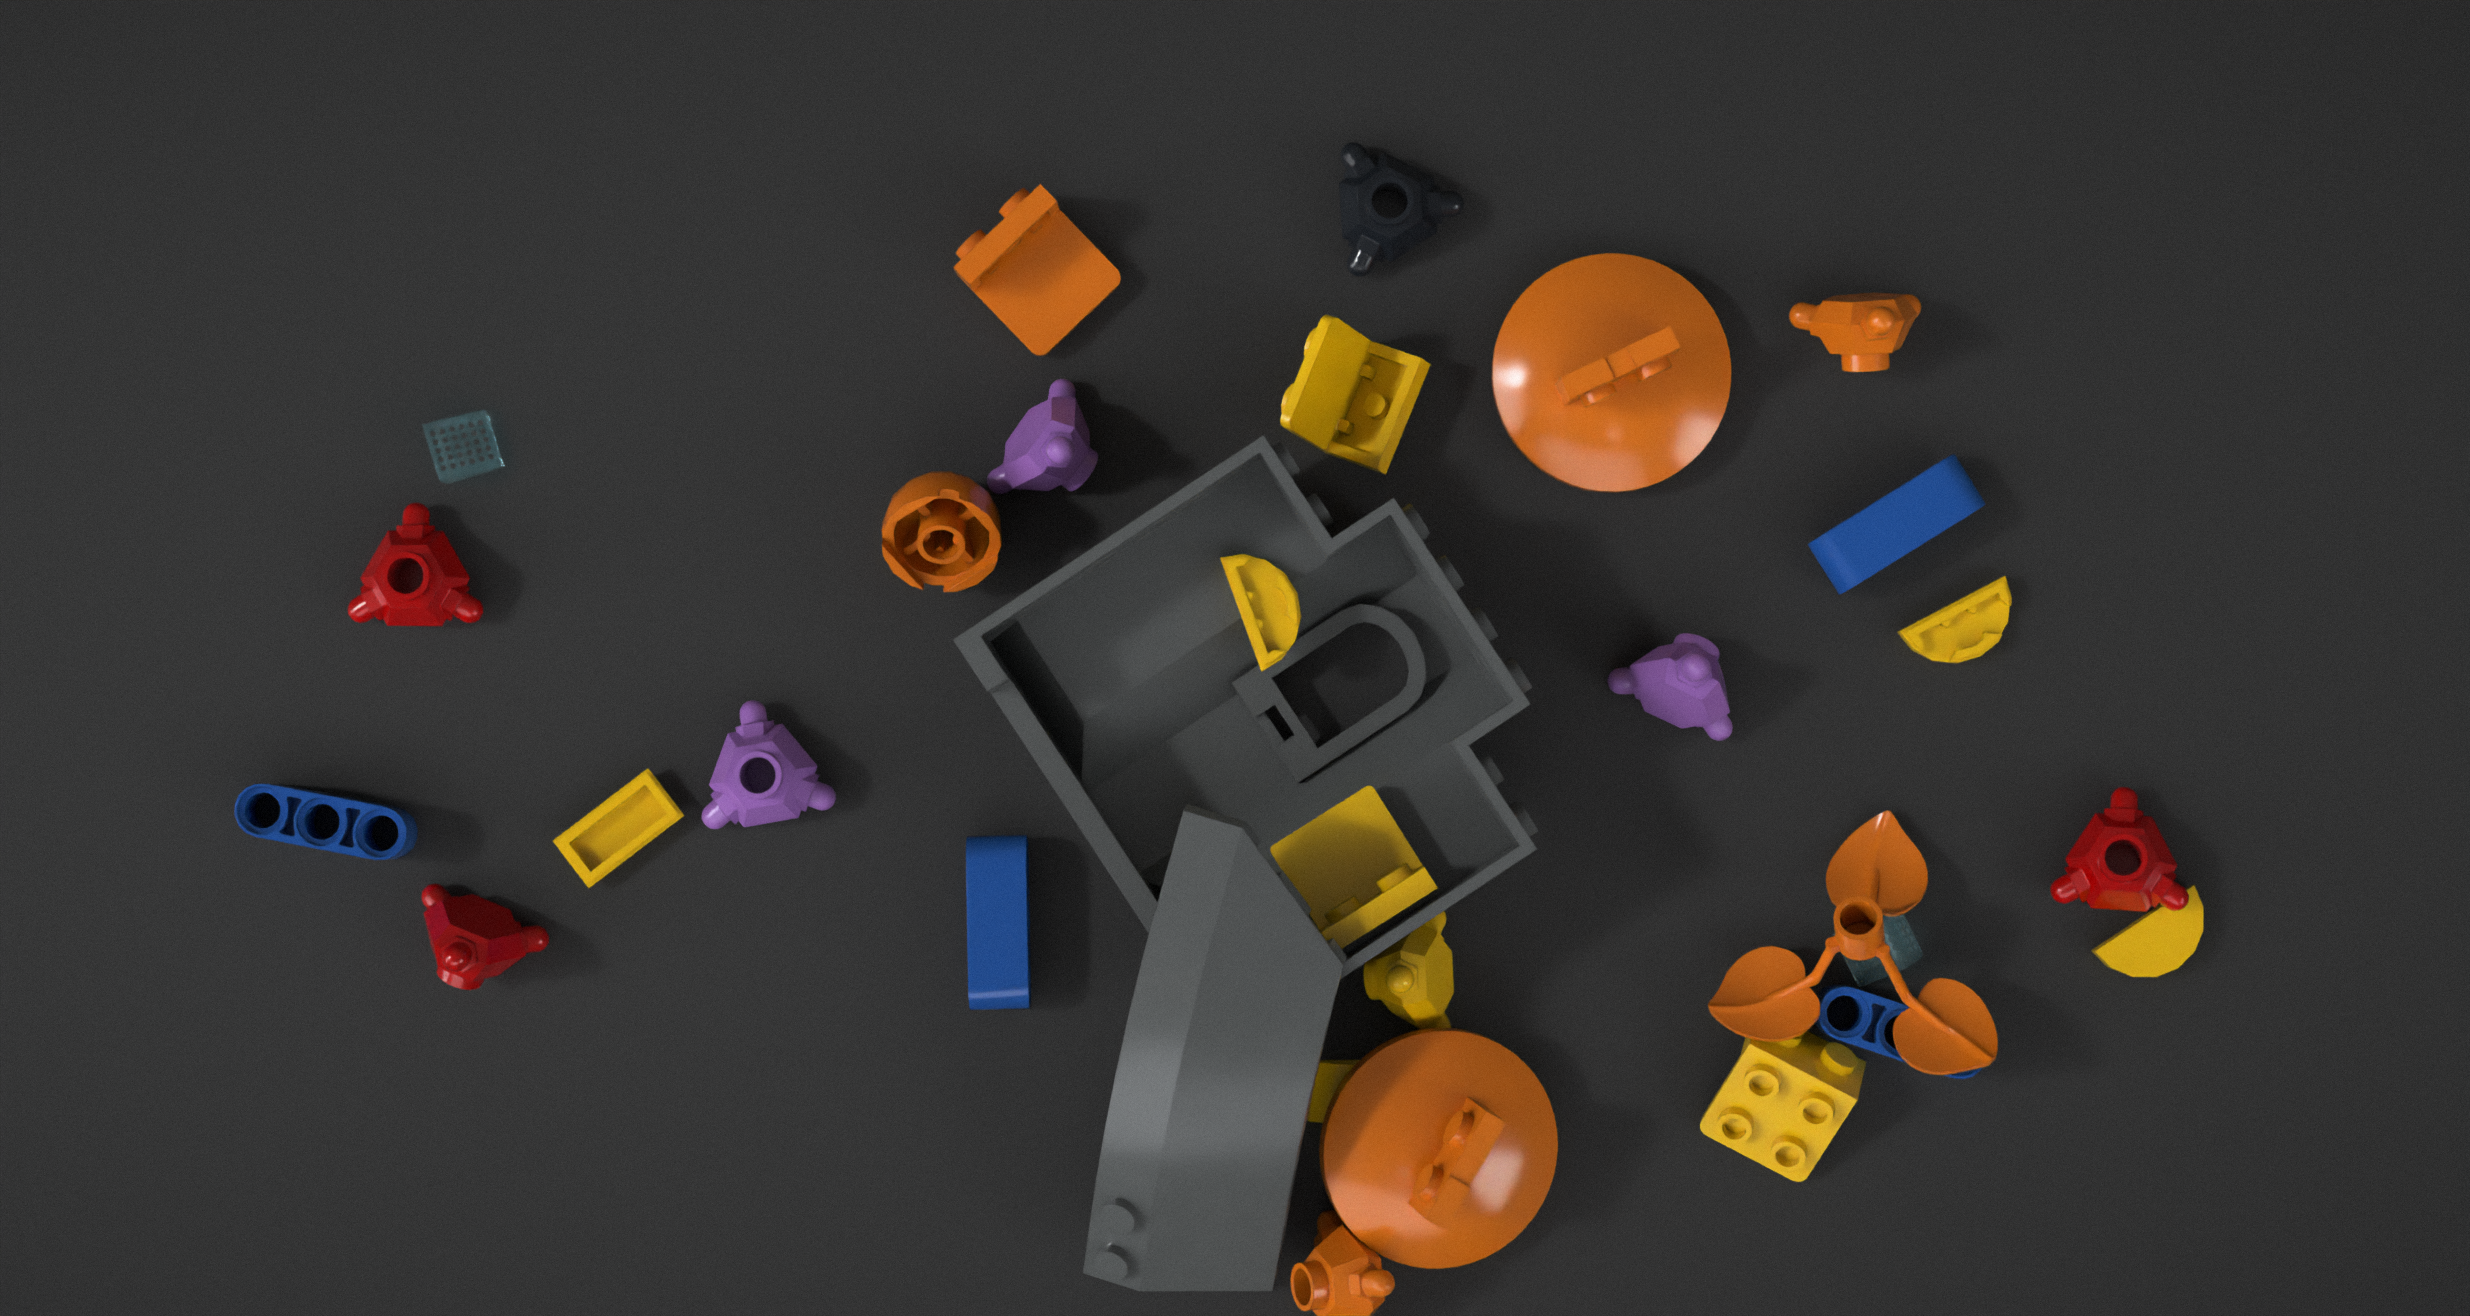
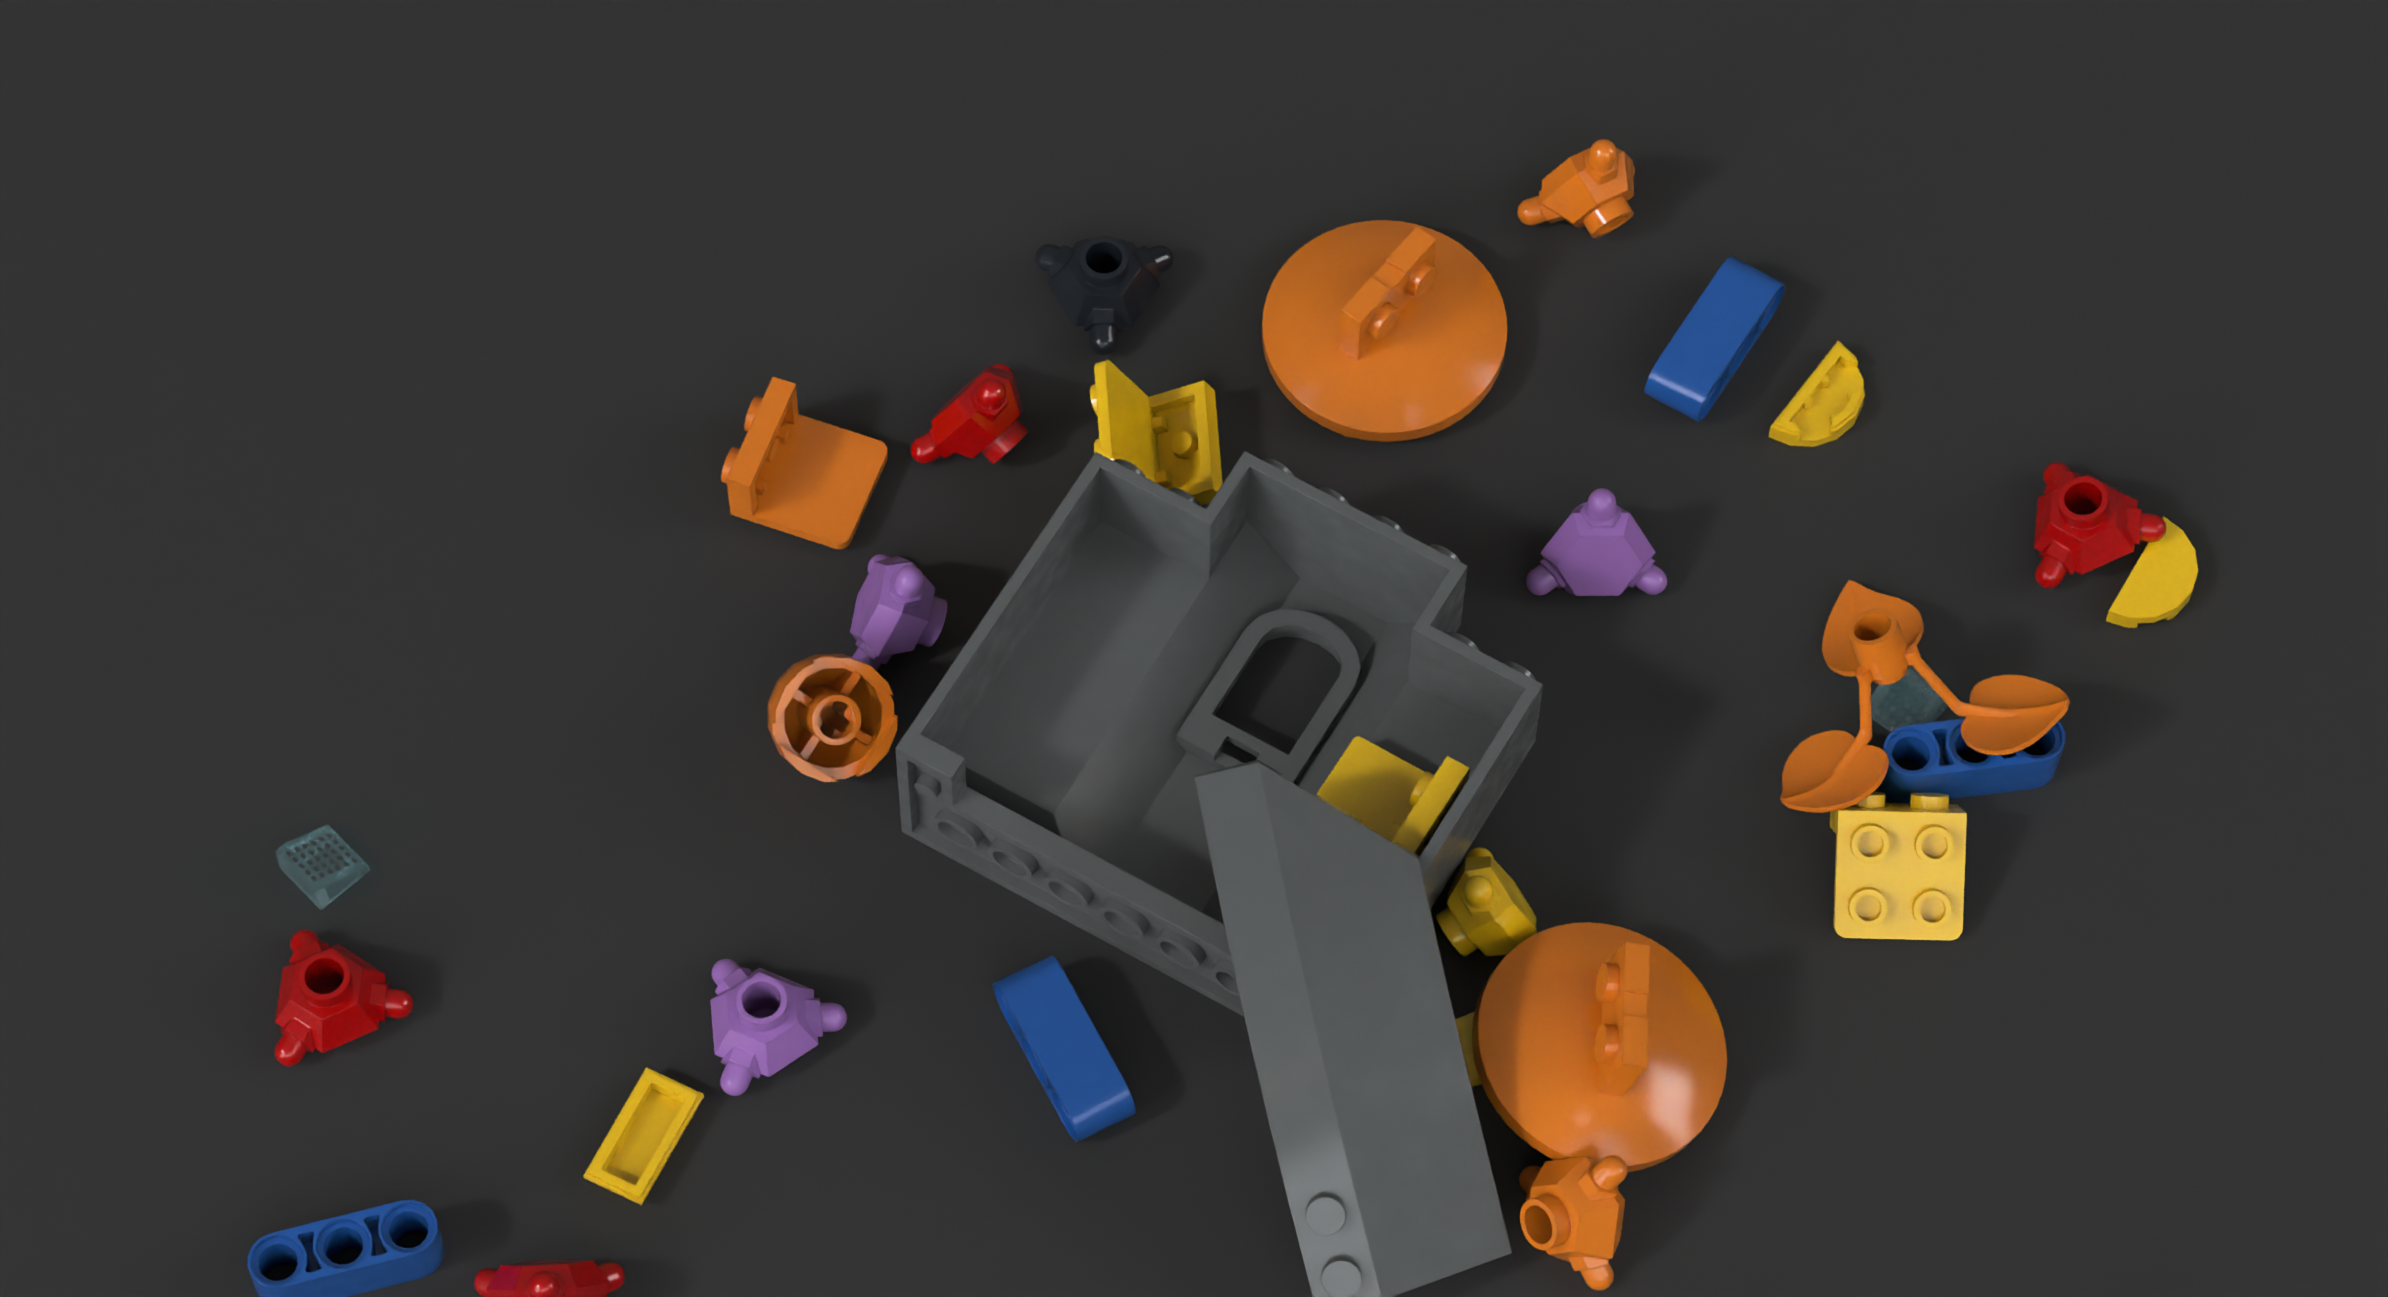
camera: 30 degrees left, 25 degrees down
(1211, 291) = (976, 420): none -> red rock
(1265, 605) = (1172, 634): yellow tile -> none

